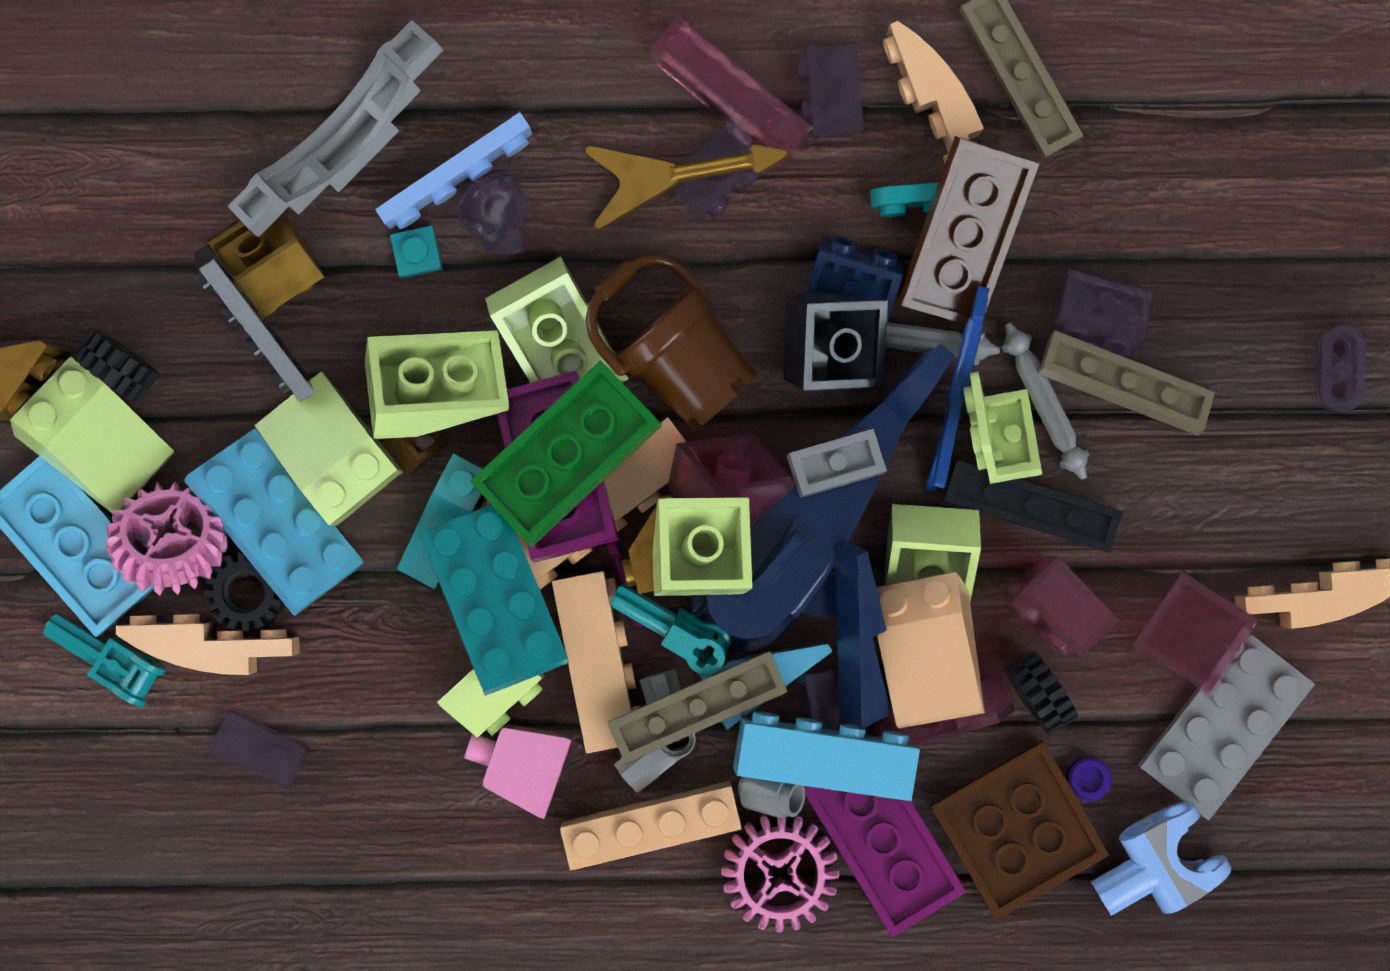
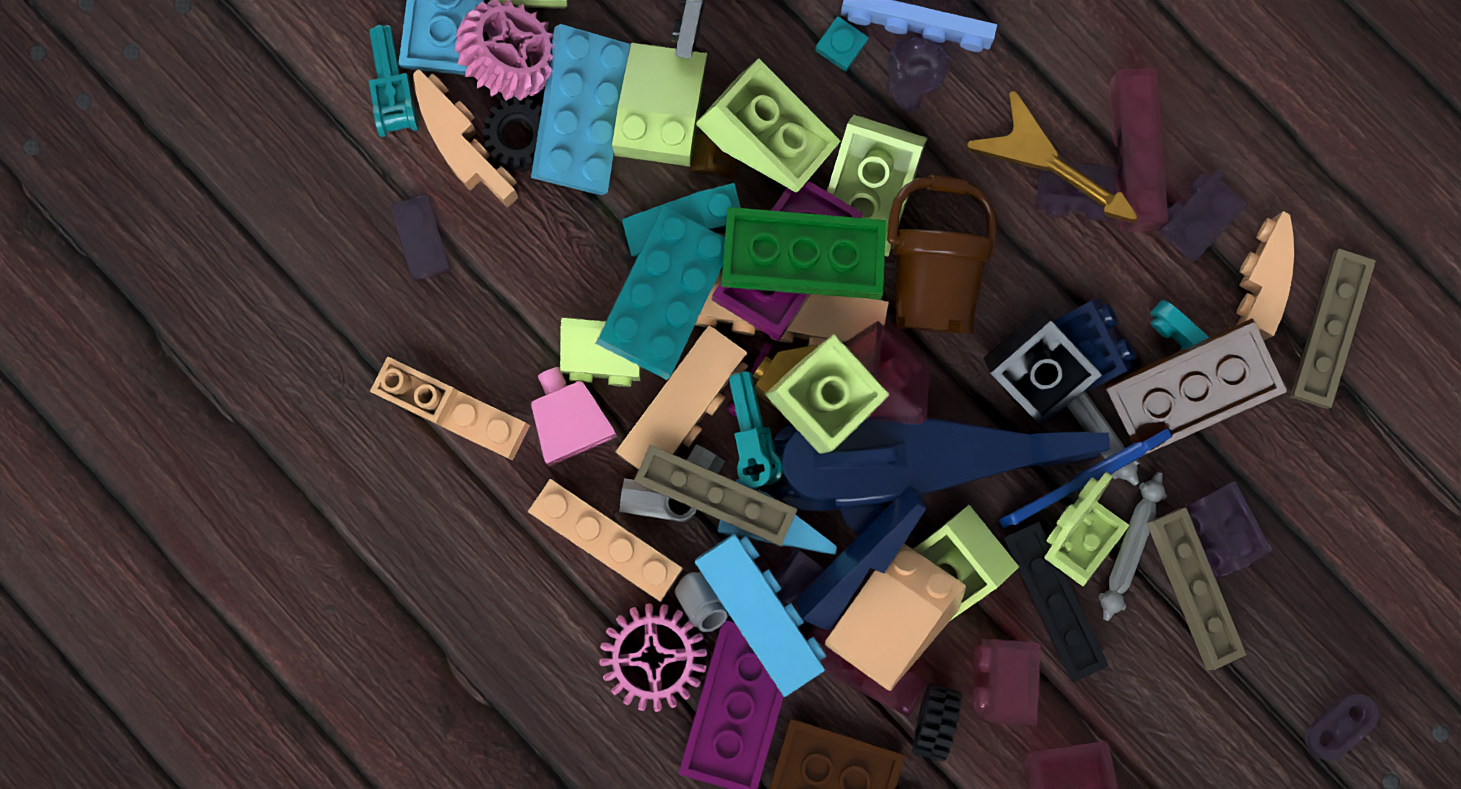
camera: 50 degrees right, 5 degrees down
(425, 854) = (450, 408): none -> light nougat slope
(836, 463) = (964, 437): light grey plate -> none

